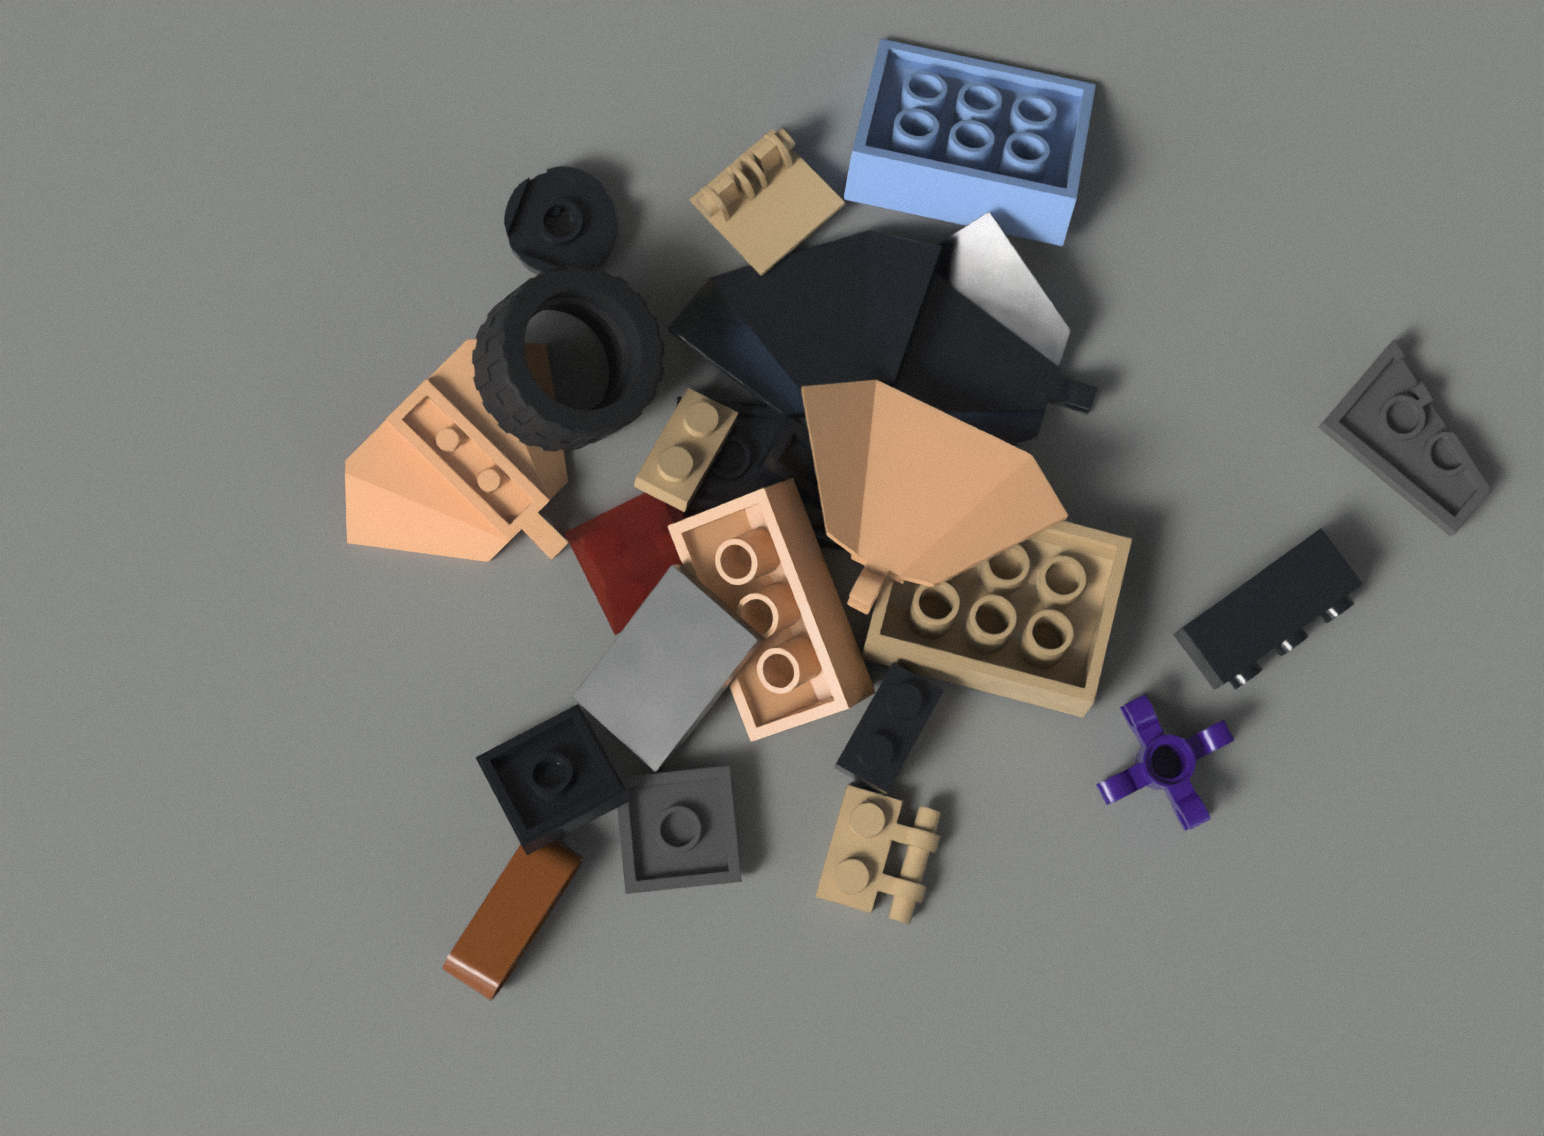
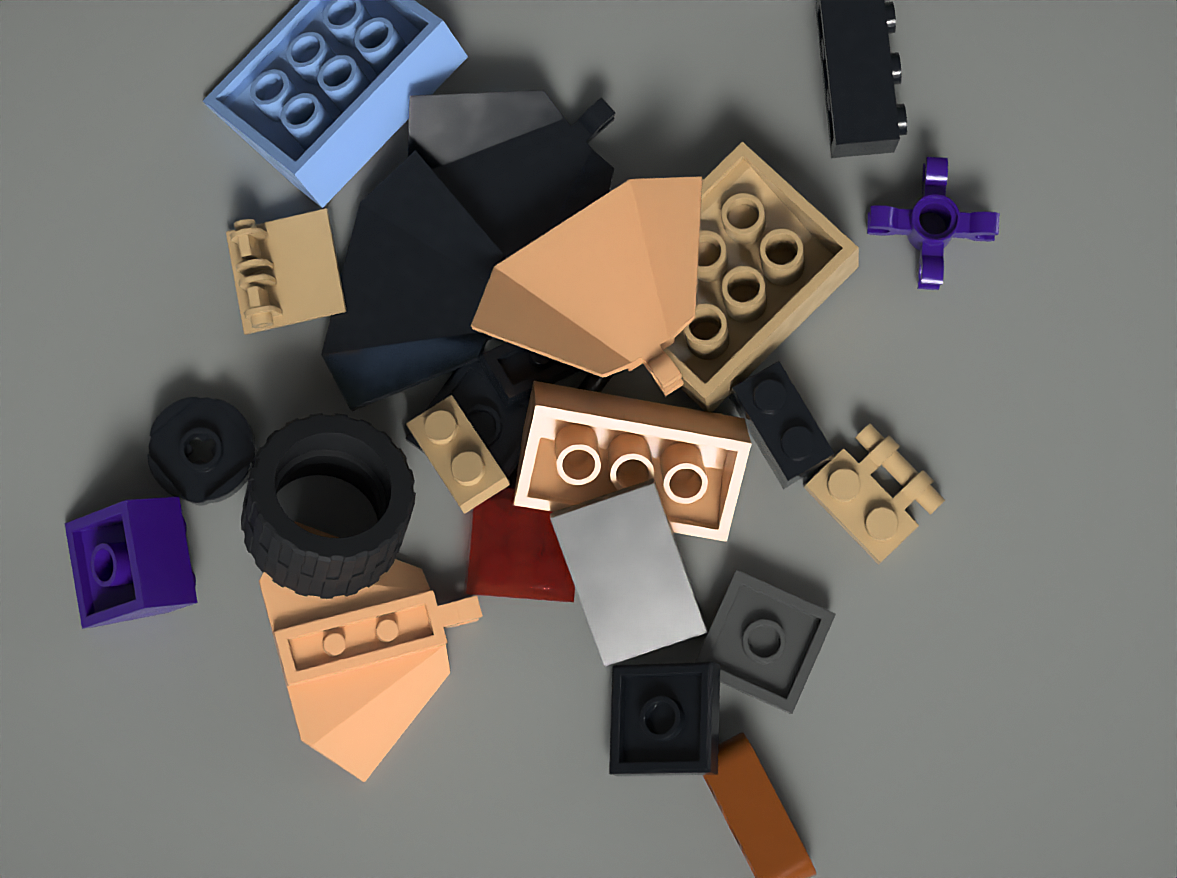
camera: 60 degrees left, 0 degrees up
(425, 221) = (131, 561): none -> dark purple slope

